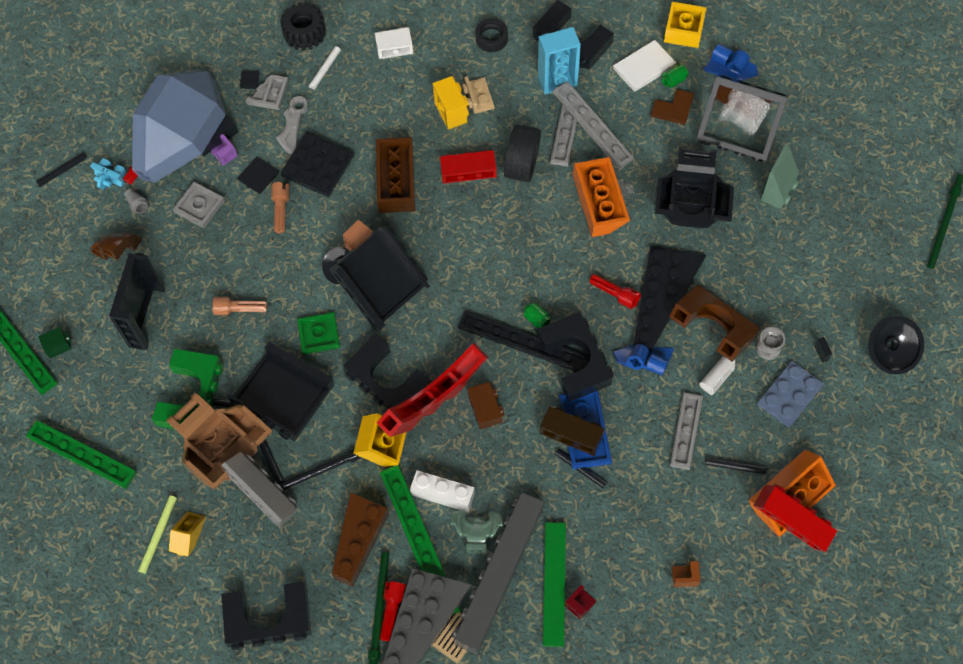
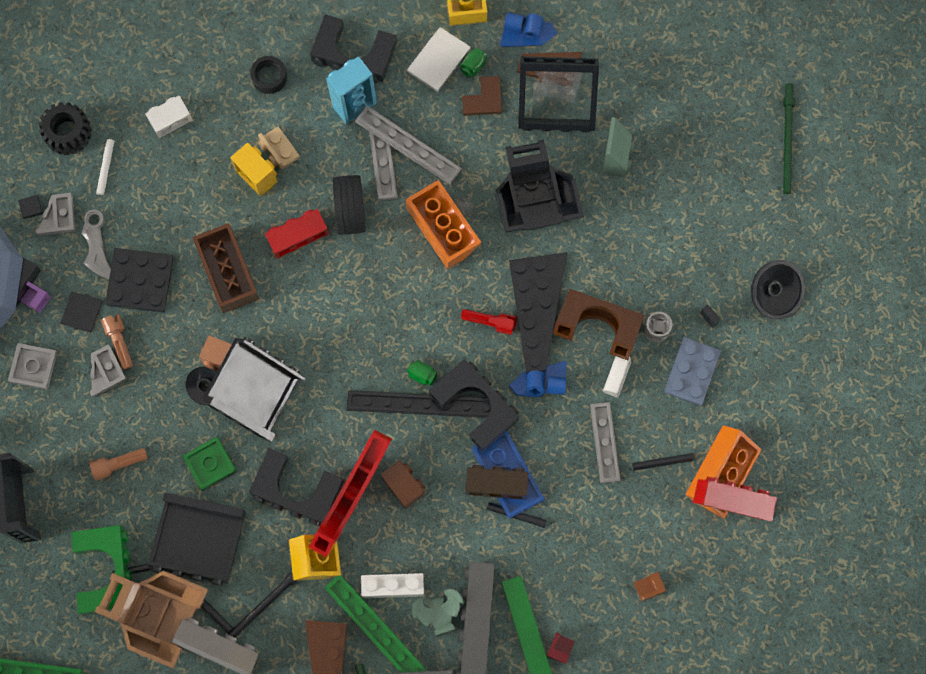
camera: 20 degrees left, 10 degrees up
(258, 228) = (105, 371): none -> light grey wing

